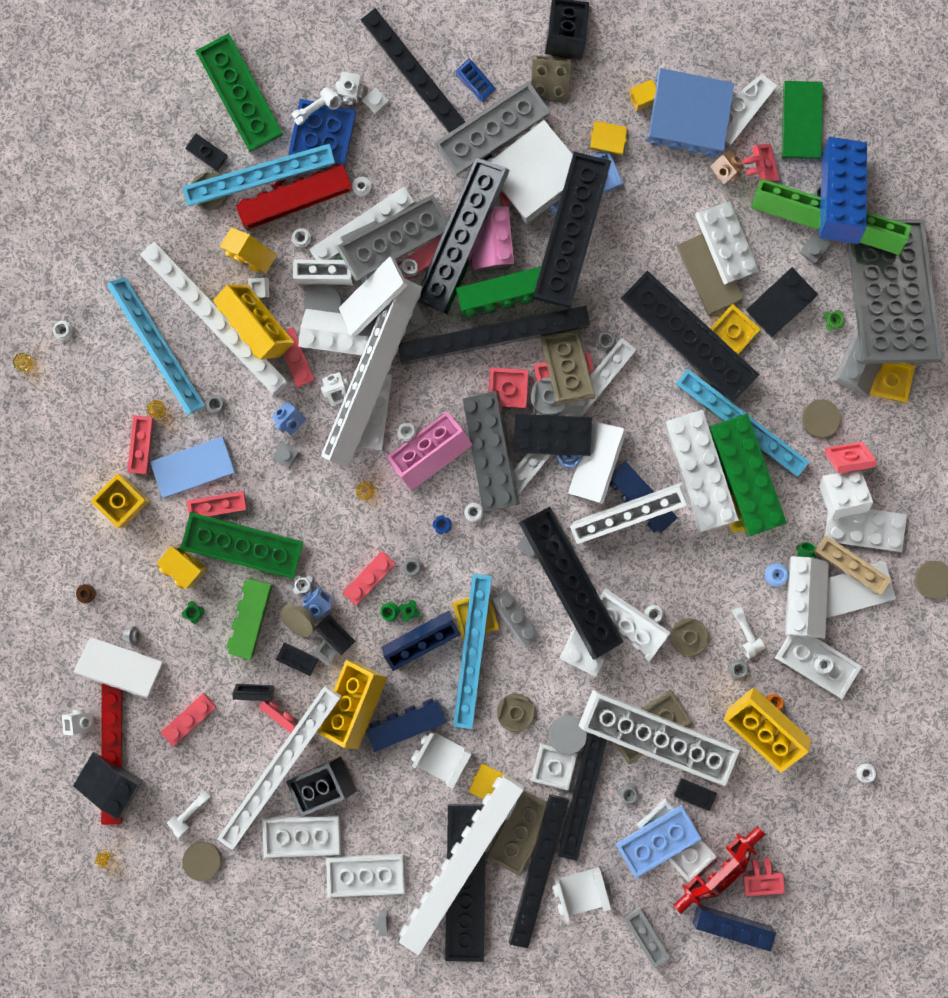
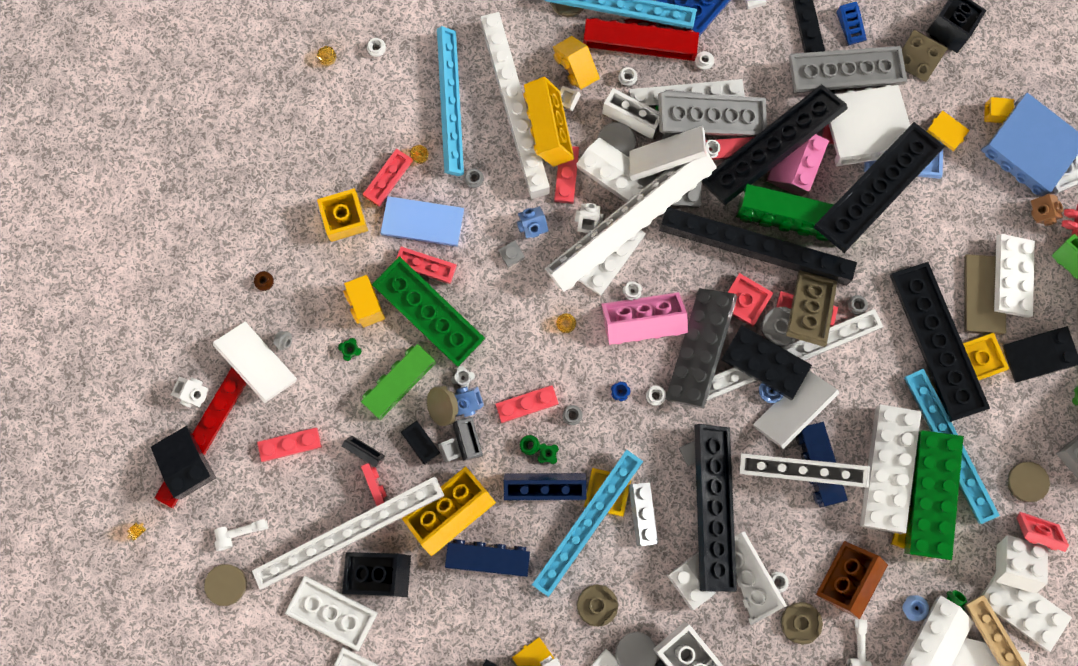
camera: 30 degrees right, 10 degrees down
(441, 757) = (503, 609): white panel -> none
(713, 580) = (852, 579): none -> dark orange slope

